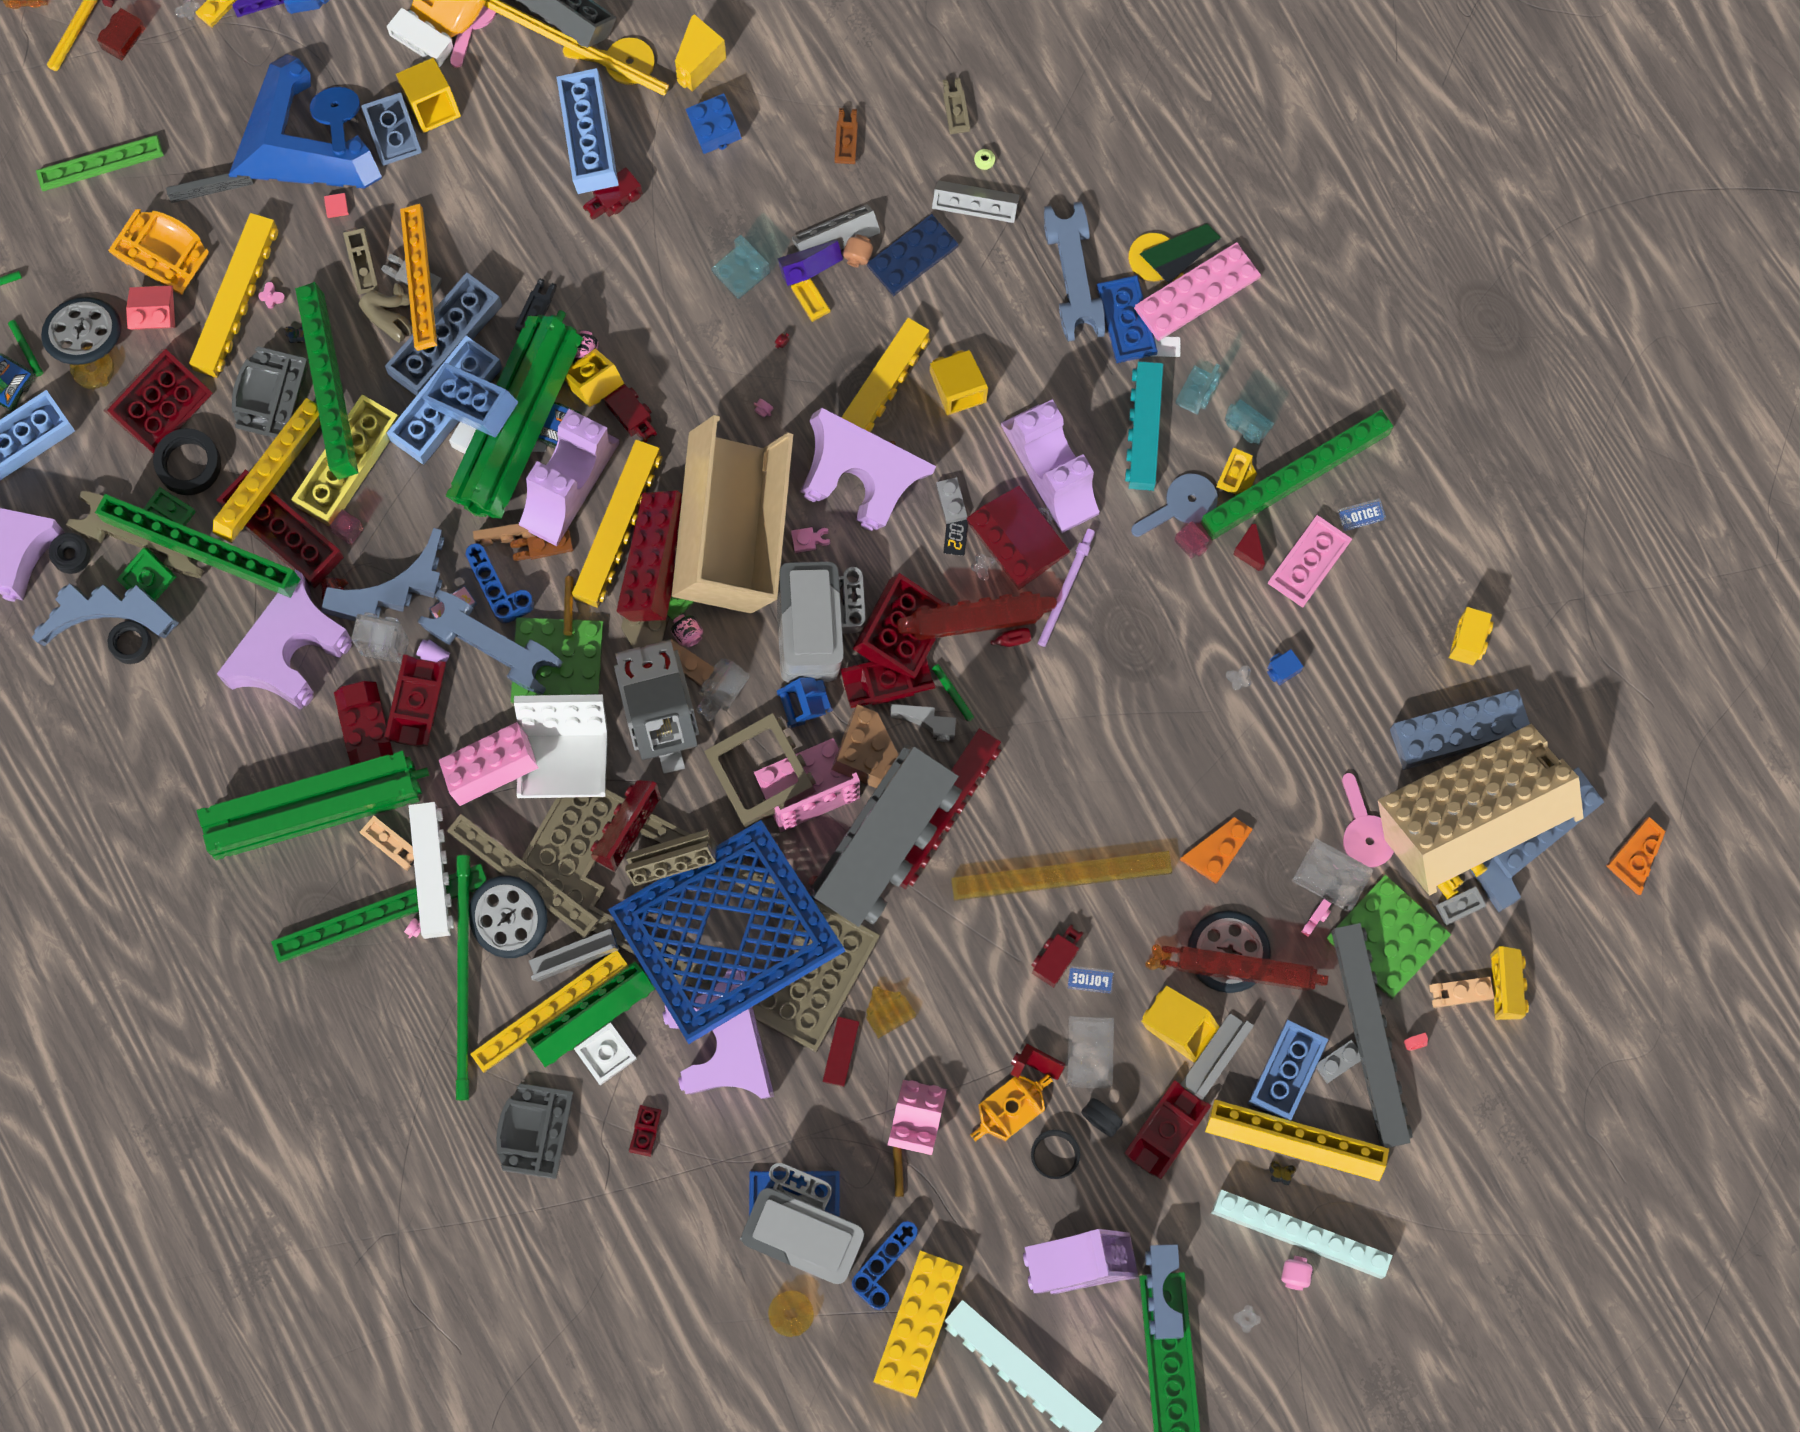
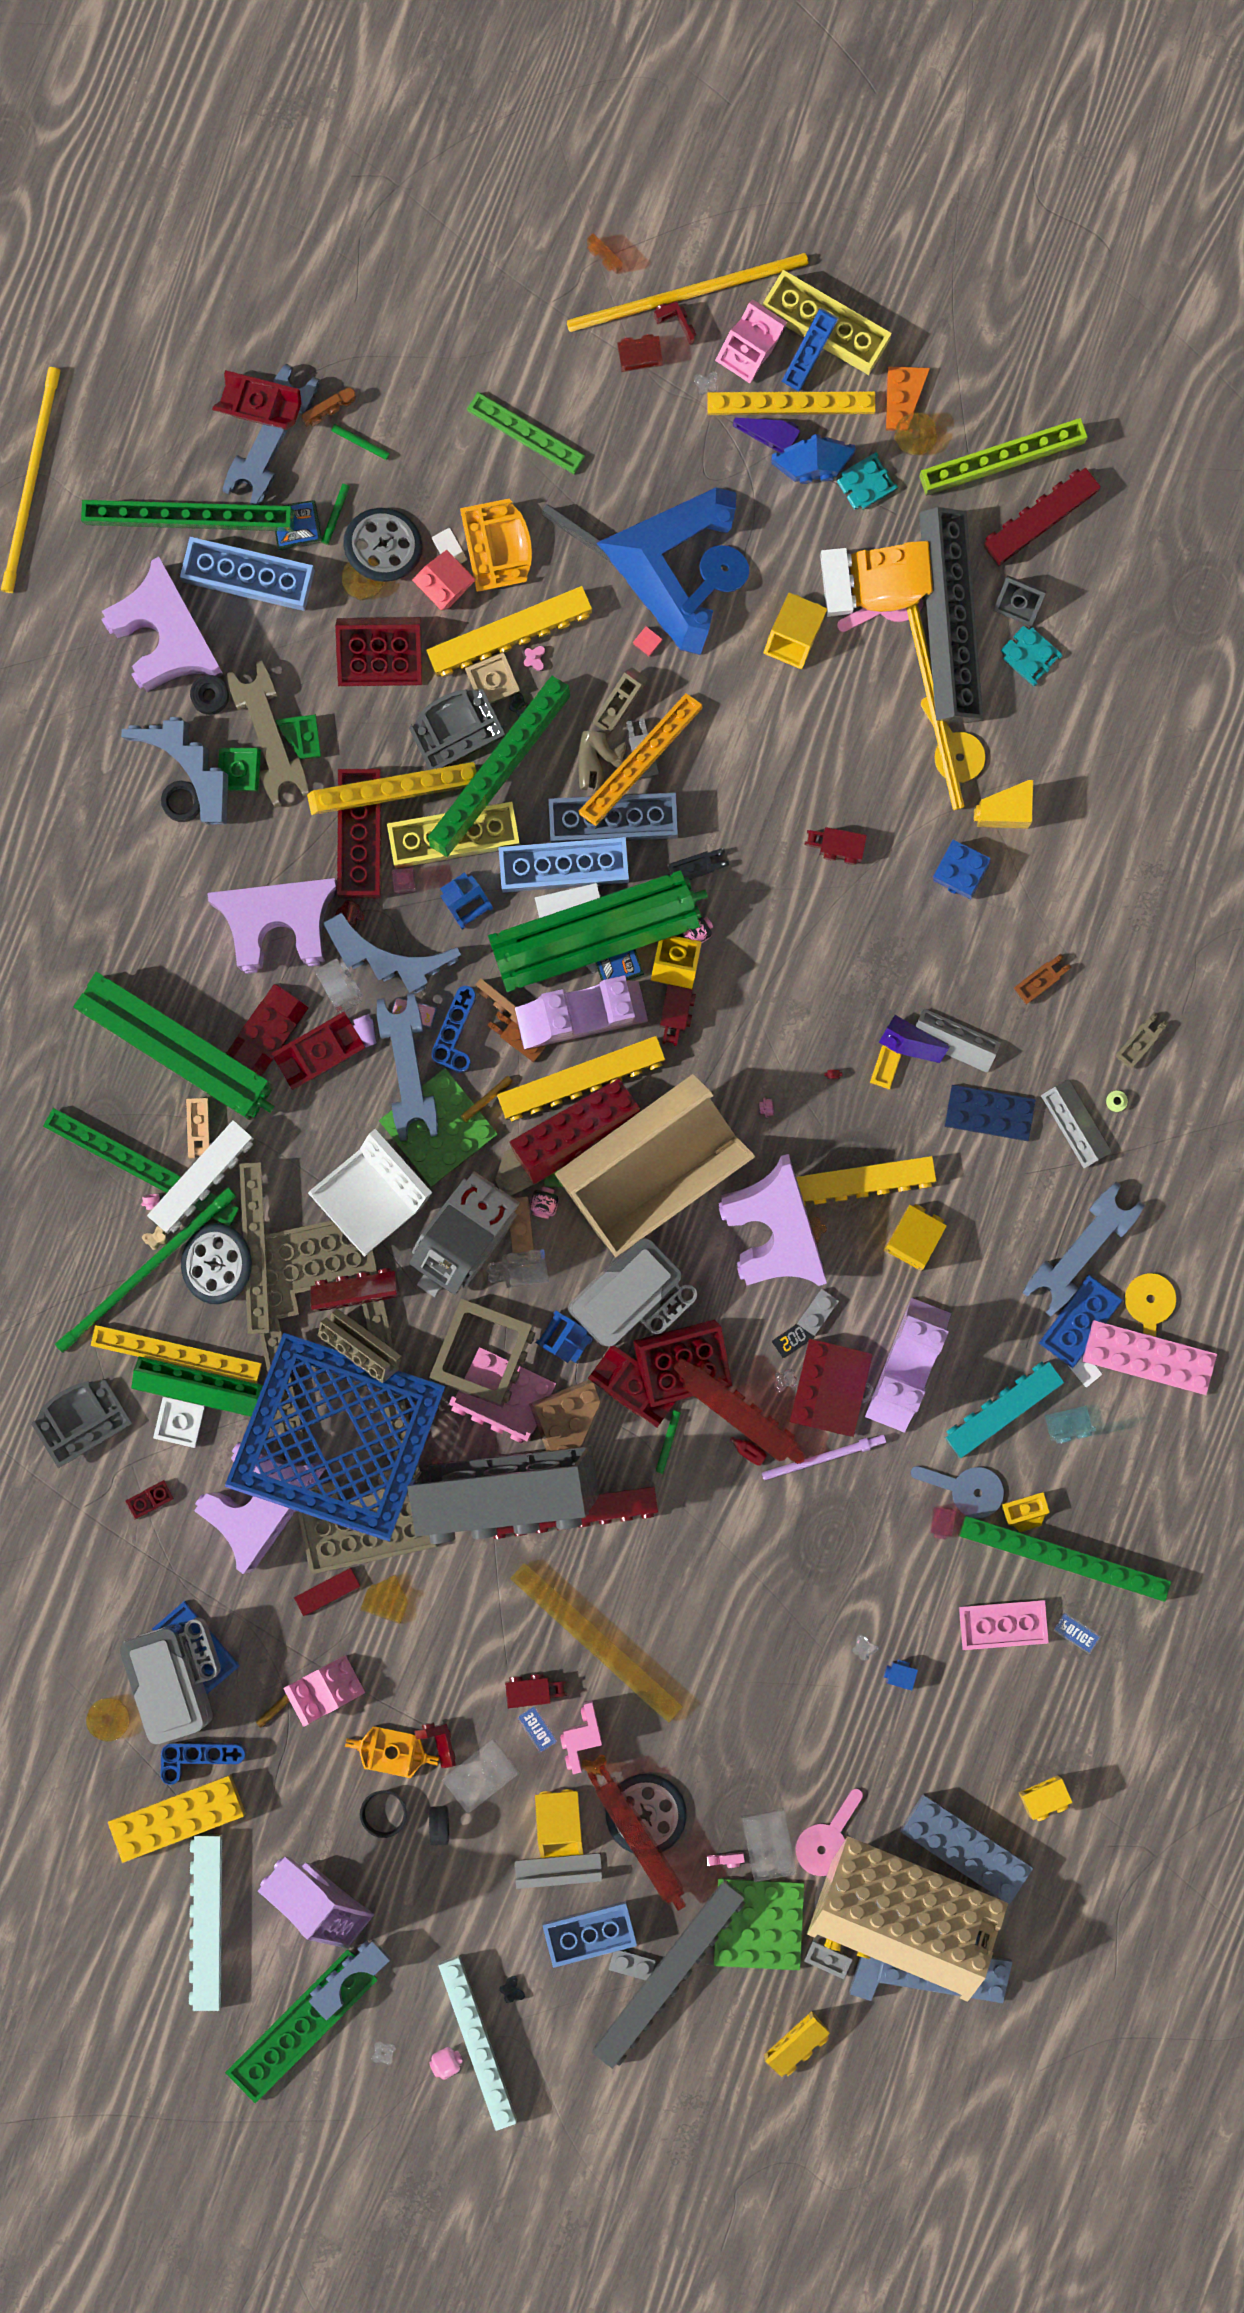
camera: 55 degrees right, 10 degrees up
(122, 284) = (446, 541): none -> white sticker
(176, 439) = (340, 693): black tyre -> none
(198, 545) = (288, 791): green brick -> none
(256, 332) = (493, 677): none -> tan plate
(391, 128) = (744, 627): sand blue slope -> none
(395, 491) = (460, 893): none -> blue piece
(446, 949) = (156, 1238): none -> tan piece
(470, 399) = (571, 892): medium blue brick -> none
(488, 764) = (314, 1149): bright pink brick -> none
(573, 955) = (229, 1336): light grey panel -> none
(587, 131) = (868, 781): light blue brick -> none
(741, 268) = (862, 993): clear light blue bracket -> none
(805, 539) = (692, 1229): bright pink plate -> none
(858, 250) = (954, 1070): nougat head -> none
(941, 727) = (632, 1458): light grey slope -> none
(1126, 945) = (581, 1737): none -> bright pink bracket
(1167, 1130) = (472, 1880): dark red piece -> none
(1178, 253) = (1167, 1315): dark green sticker -> none
(1218, 850) = (716, 1742): orange wing -> none
(1248, 422) = (1076, 1485): clear light blue bracket -> none
(1250, 549) = (974, 1571): dark red slope -> none
(1297, 1140) = (543, 1983): yellow brick -> none
(1416, 1042) = (693, 2010): coral tile -> none
(1462, 992) = (763, 2013): light nougat plate -> none
(1635, 857) = (982, 2060): orange wing -> none

